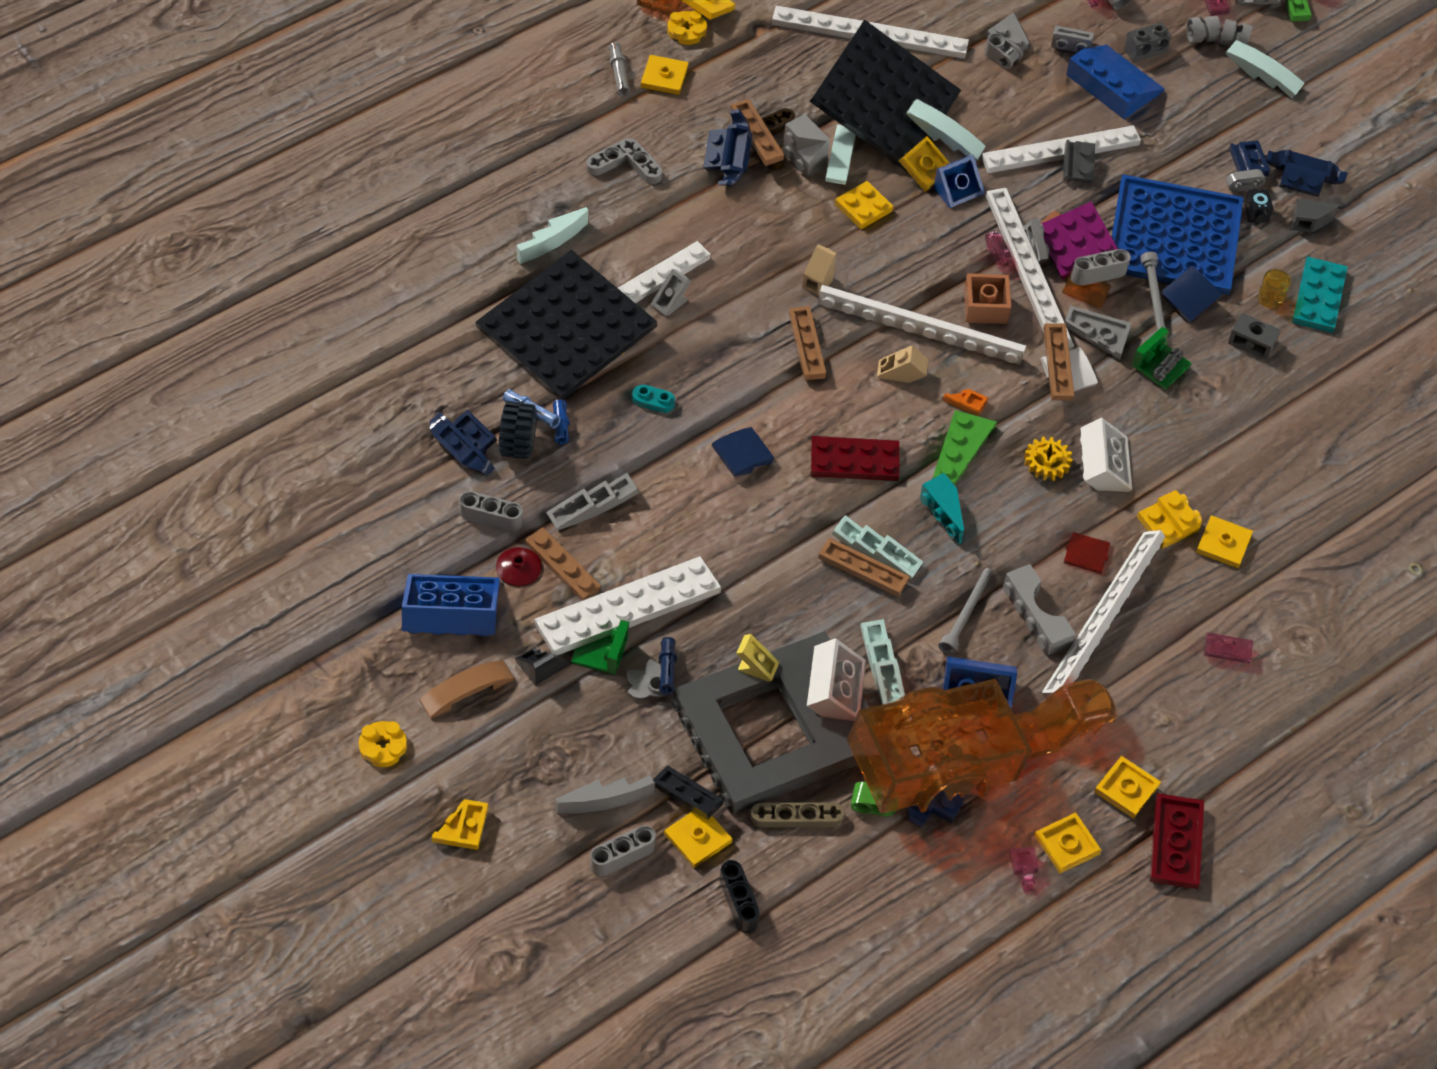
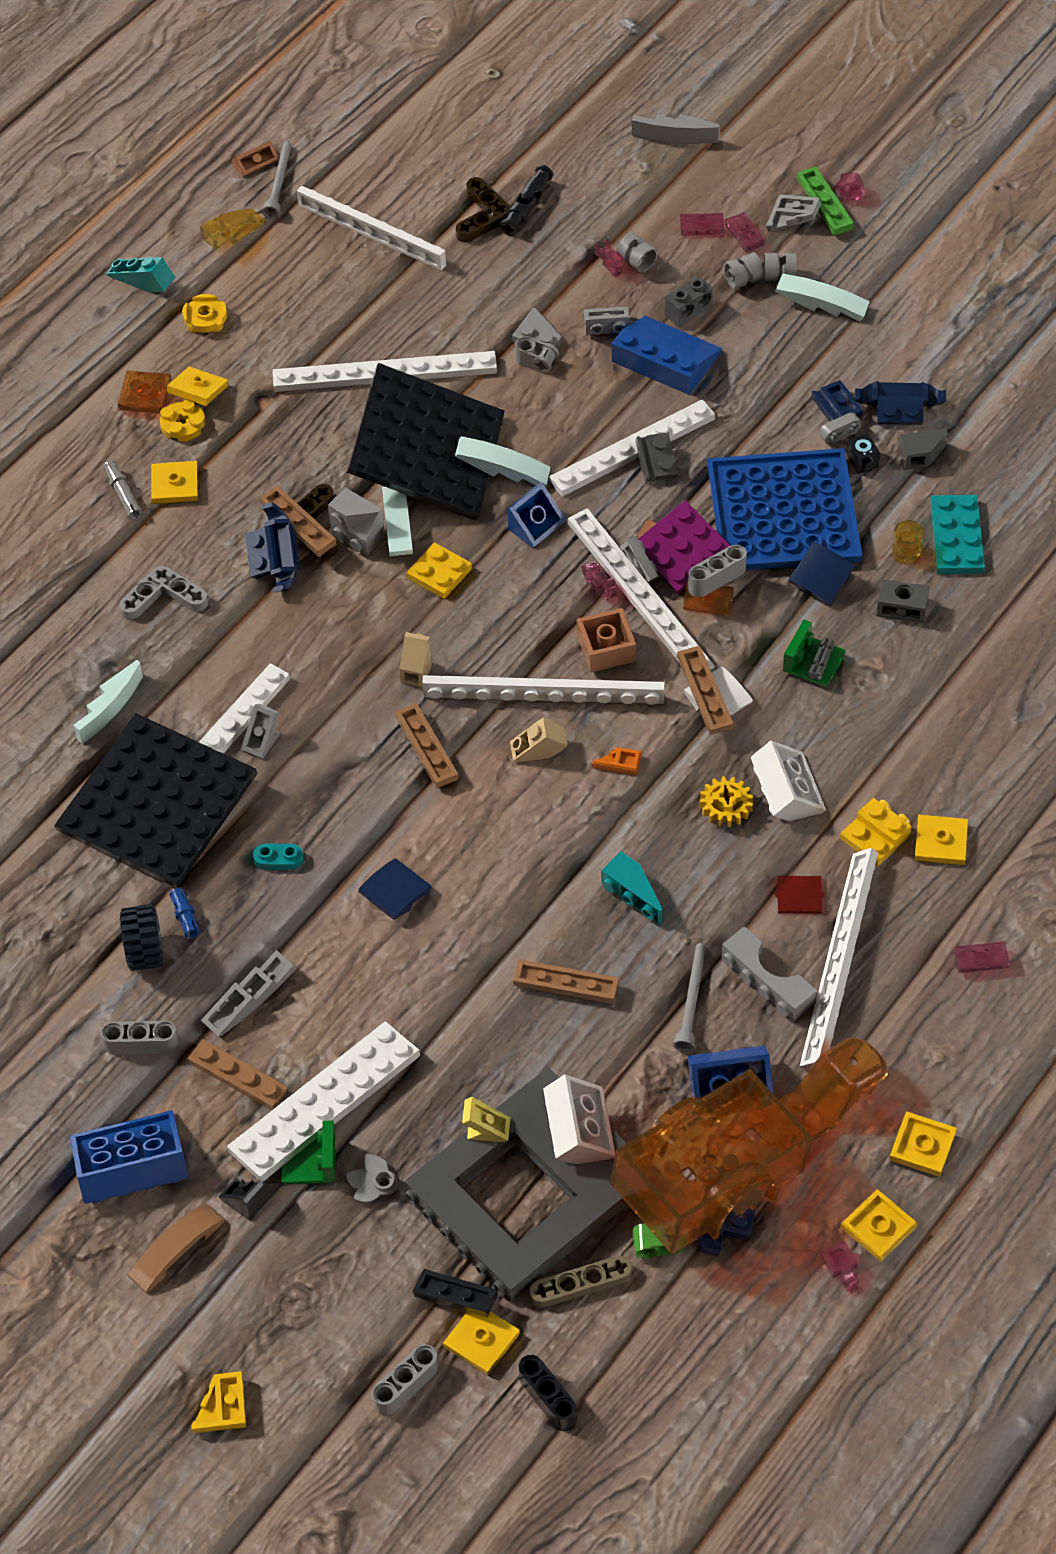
camera: 10 degrees left, 0 degrees up
(377, 732) = (99, 1323): yellow plate -> none
(465, 440) = (85, 964): dark blue plate -> none
(518, 574) = (189, 1100): dark red dish -> none
(549, 418) = (171, 913): medium blue pin -> none
(597, 798) = (359, 1328): light grey slope -> none
(667, 658) = (386, 1148): dark blue pin -> none
(855, 458) = (518, 861): dark red plate -> none
(875, 546) = (573, 955): light aqua slope -> none
(882, 661) = (620, 1084): light aqua slope -> none
(923, 163) = (490, 505): yellow plate -> none
(961, 444) = (629, 811): bright green wing -> none
(1099, 329) = (737, 640): light grey wing -> none
(1149, 261) = (768, 550): light grey piece -> none
(1177, 841) = (993, 1188): dark red plate -> none

